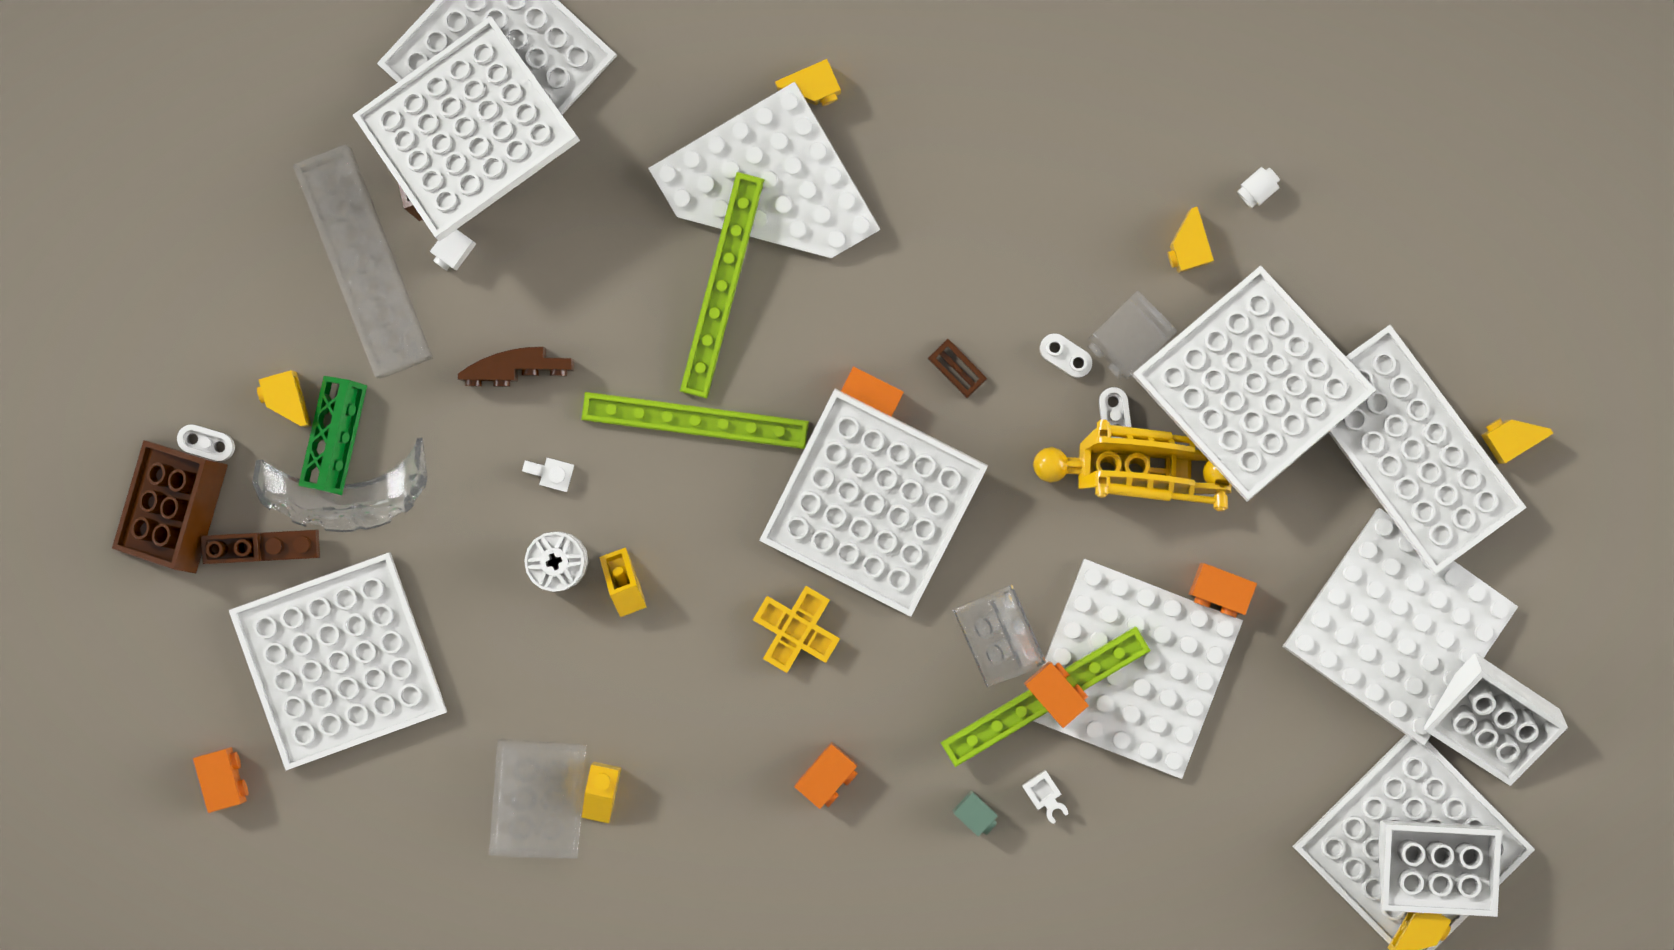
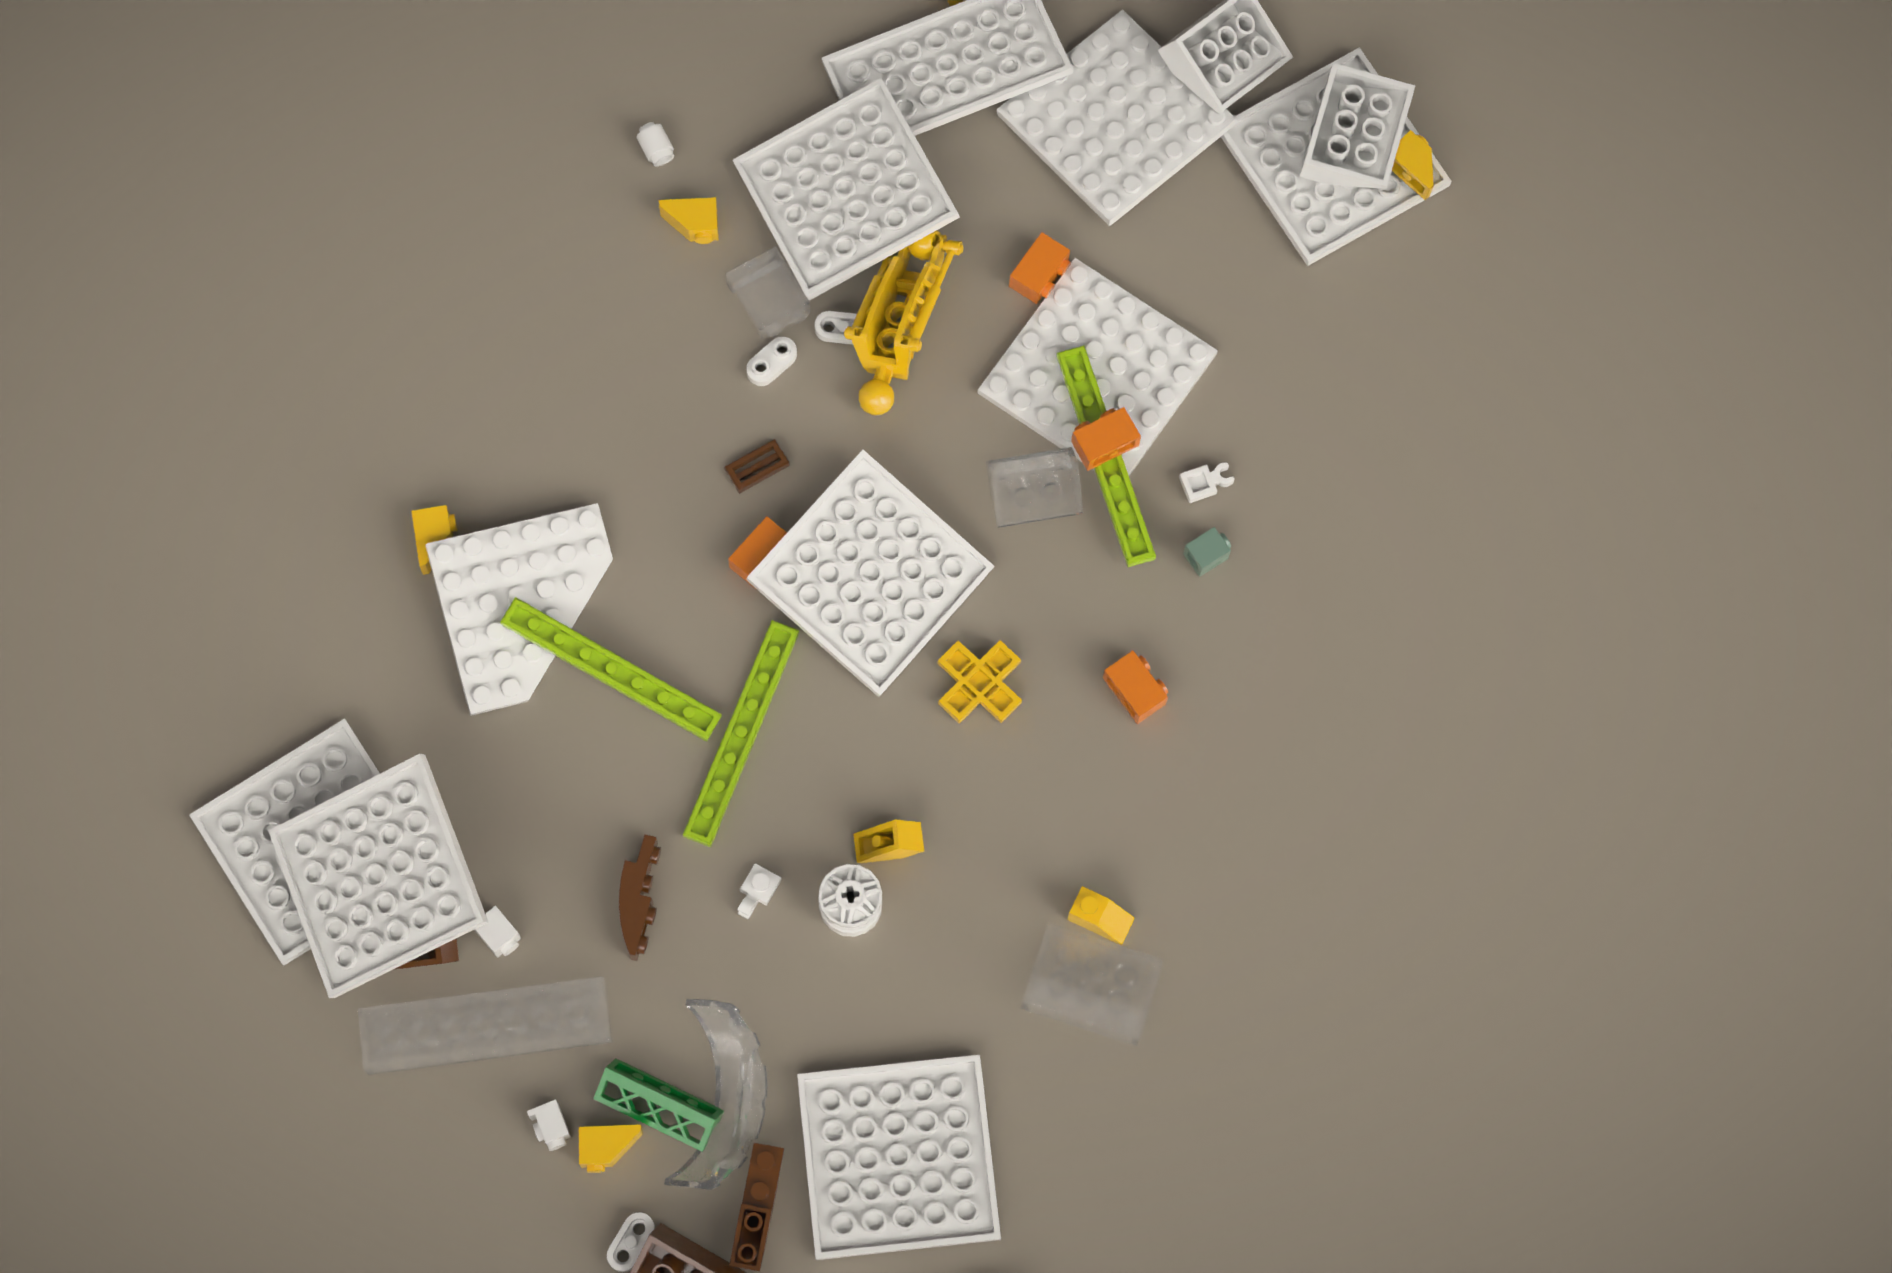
camera: 85 degrees left, 15 degrees down
(291, 343) = (550, 1125): none -> white brick

